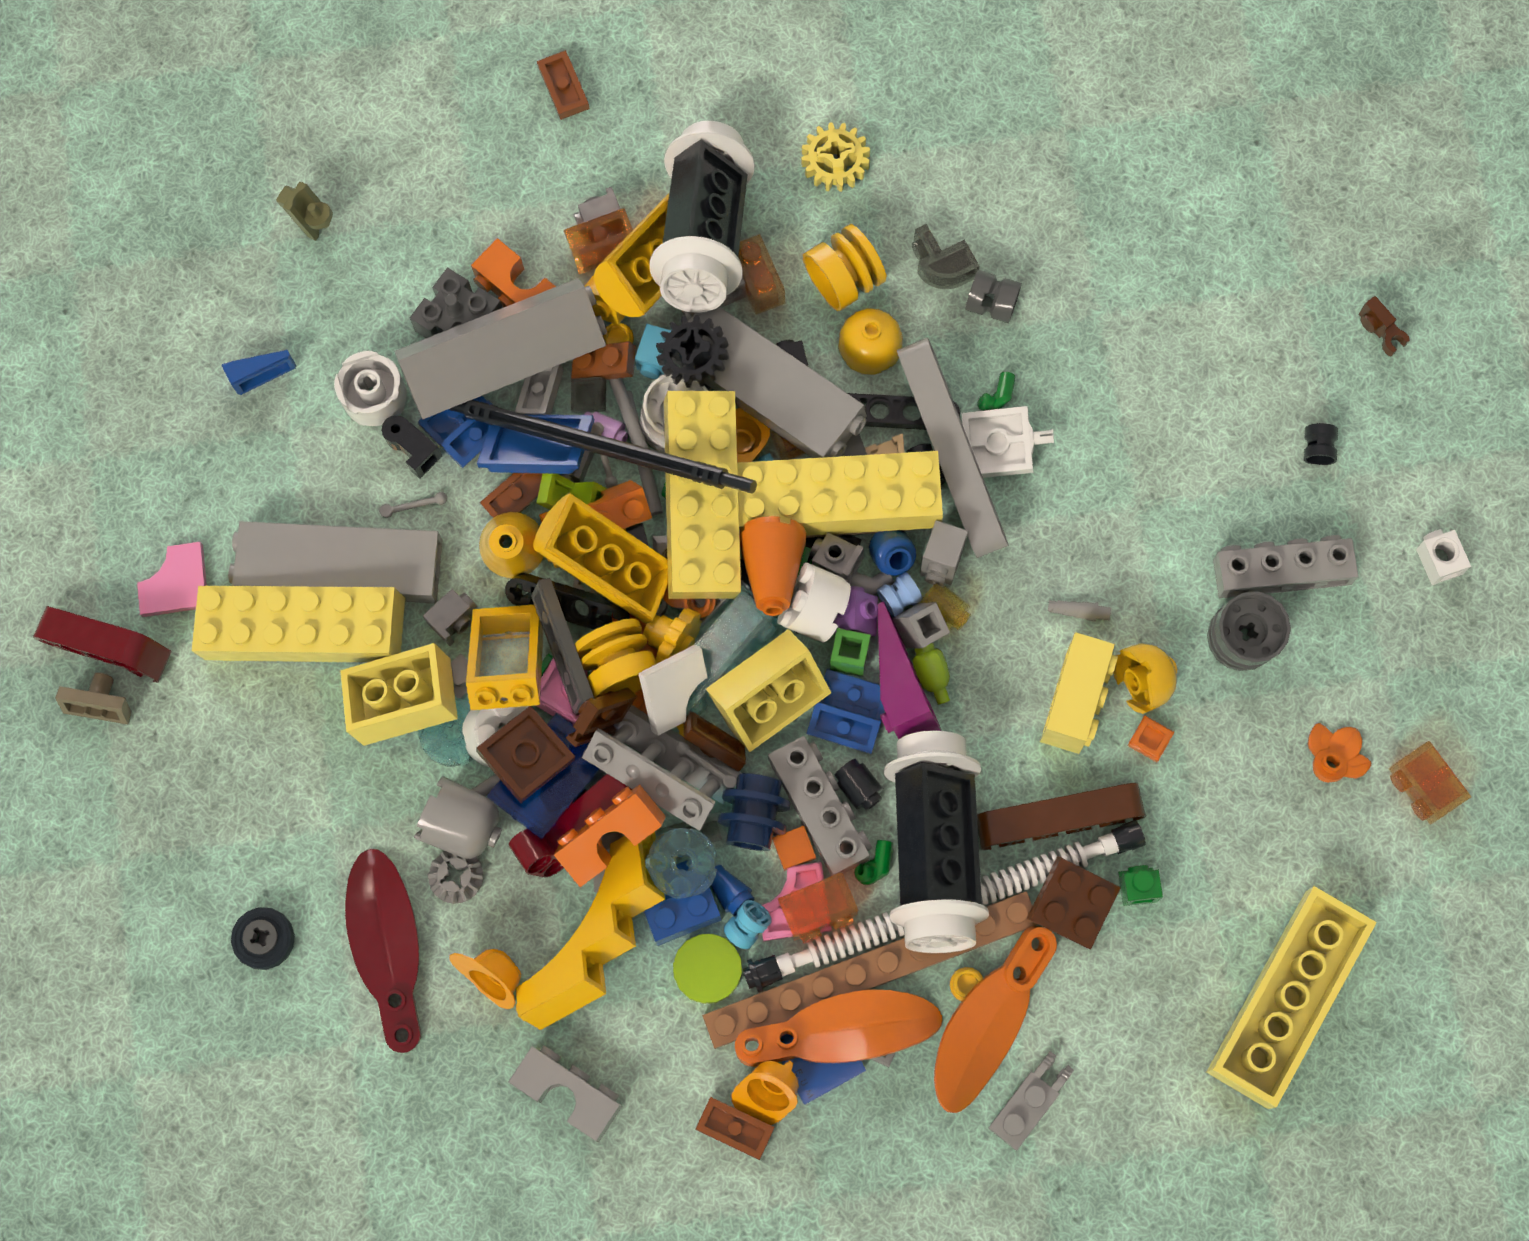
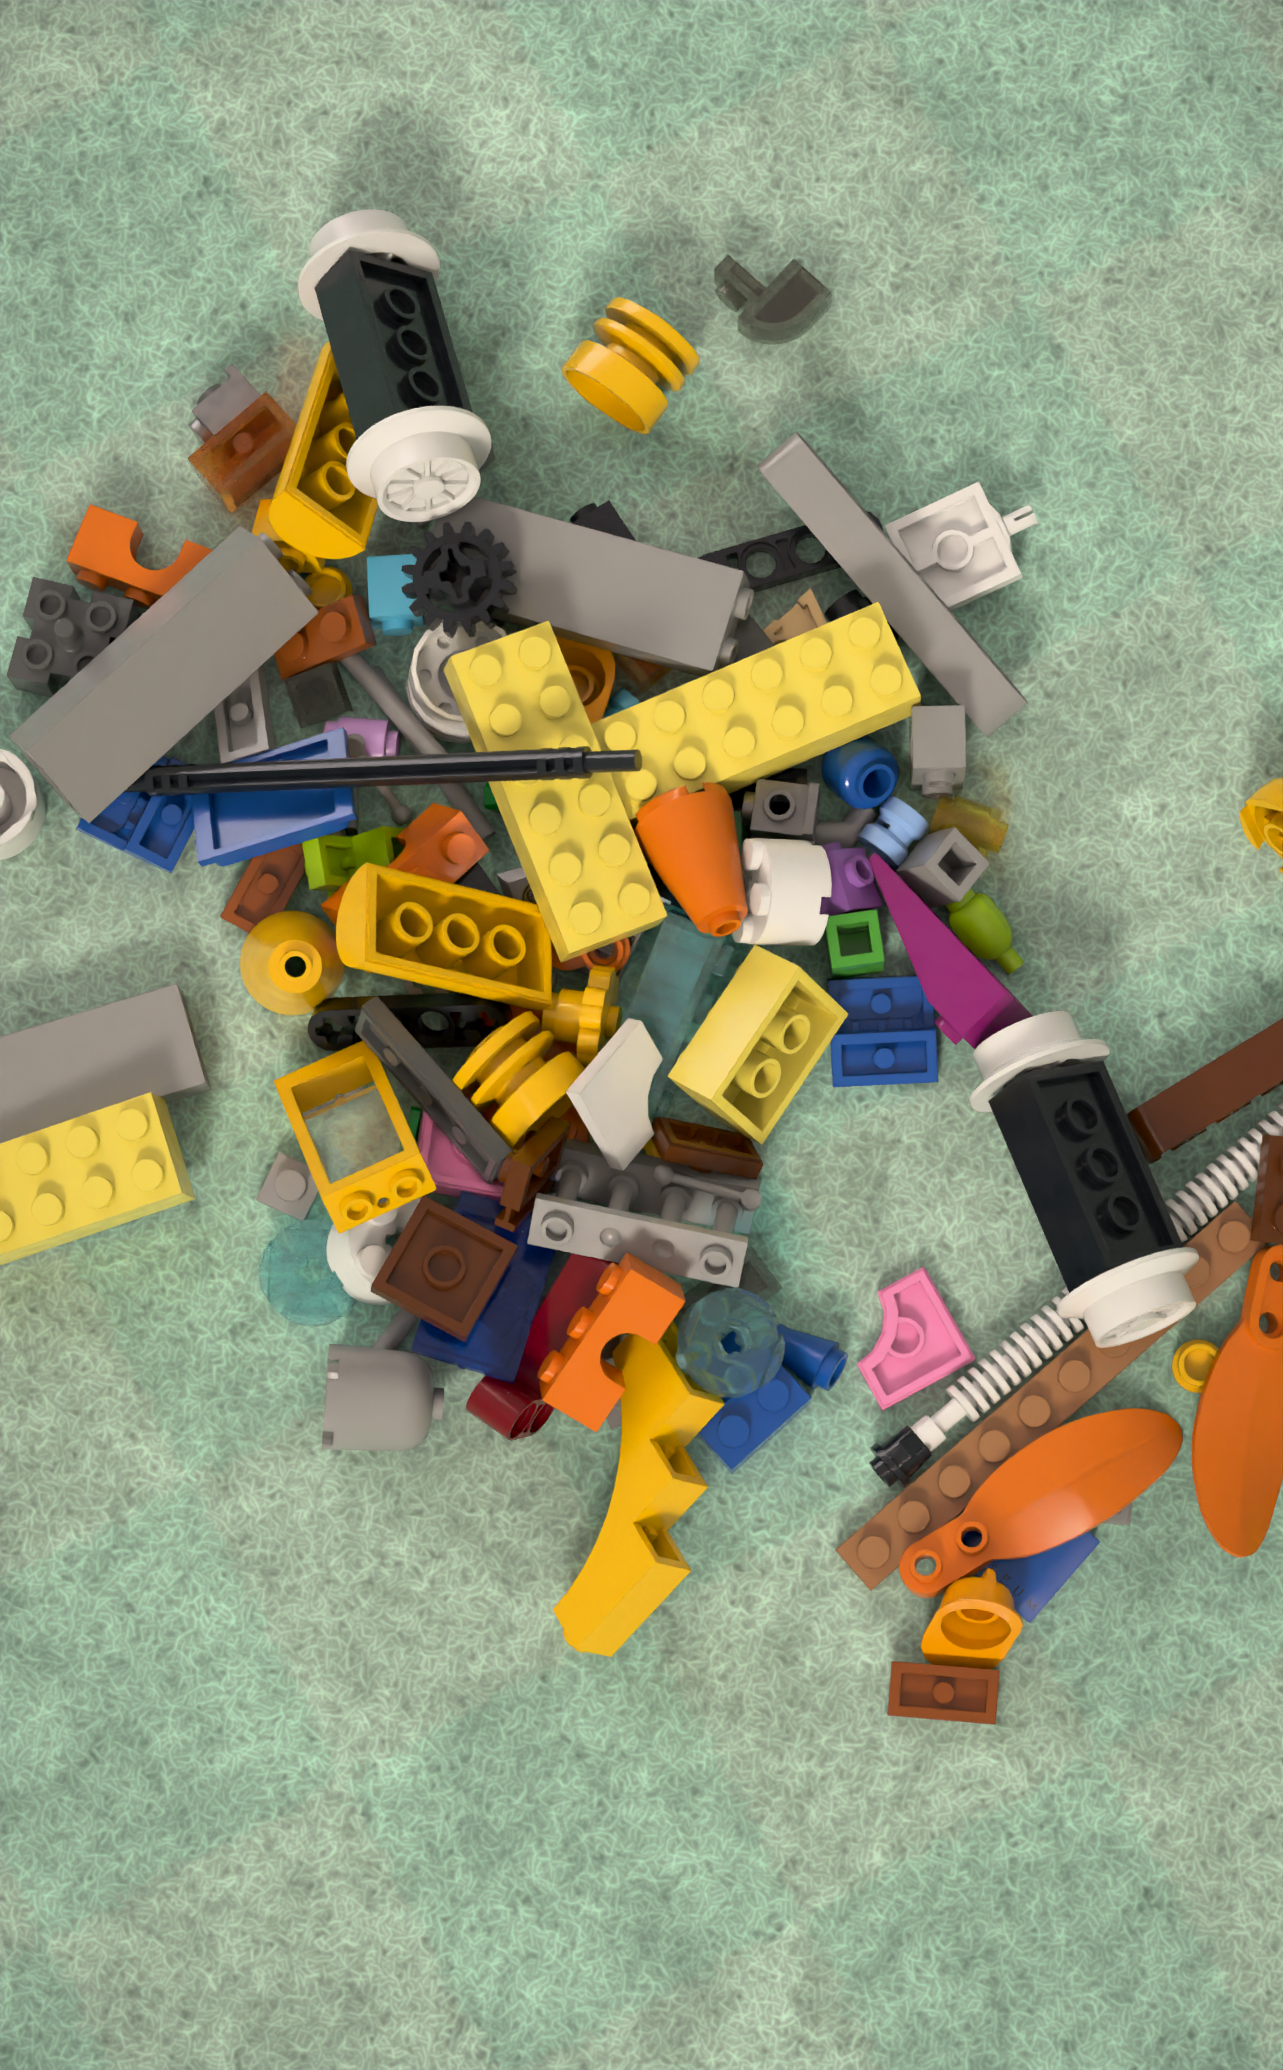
camera: 15 degrees left, 5 degrees up
(270, 948) = (168, 1686): black wheel -> none
(384, 942) = (334, 1612): dark red plant -> none
(387, 511) = (82, 977): light grey hinge -> none
(398, 694) = (216, 1247): light yellow brick -> none
(405, 437) = (68, 857): black leg -> none
(449, 891) = (399, 1507): light grey gear -> none
(450, 615) = (243, 1101): flat silver brick -> none
(492, 975) = (510, 1604): light orange piece -> none
(563, 85) = (92, 226): dark orange plate -> none
(593, 1107) = (637, 1716): light grey arch -> none
(707, 968) = (817, 1480): lime tile -> none
(744, 928) = (854, 1392): medium azure wheel -> none
(754, 812) = (802, 1230): dark blue piece -> none
(760, 276) = (517, 431): clear orange brick -> none
(794, 848) = (876, 1260): orange tile -> none
(818, 908) = (947, 1334): clear orange brick -> none
(819, 807) = (892, 1187): light grey brick -> none
(848, 149) = (533, 206): light yellow gear -> none
(859, 785) = (938, 1134): black brick -> none
(870, 341) = (708, 463): yellow cylinder -> none
(877, 867) = (1008, 1243): green arm -> none
(1001, 396) = (934, 475): green arm -> none
(1005, 296) = (886, 324): dark grey wheel -> none
(1079, 693) = (1209, 886): light yellow brick -> none
(1081, 610) = (1164, 759): light grey animal -> none

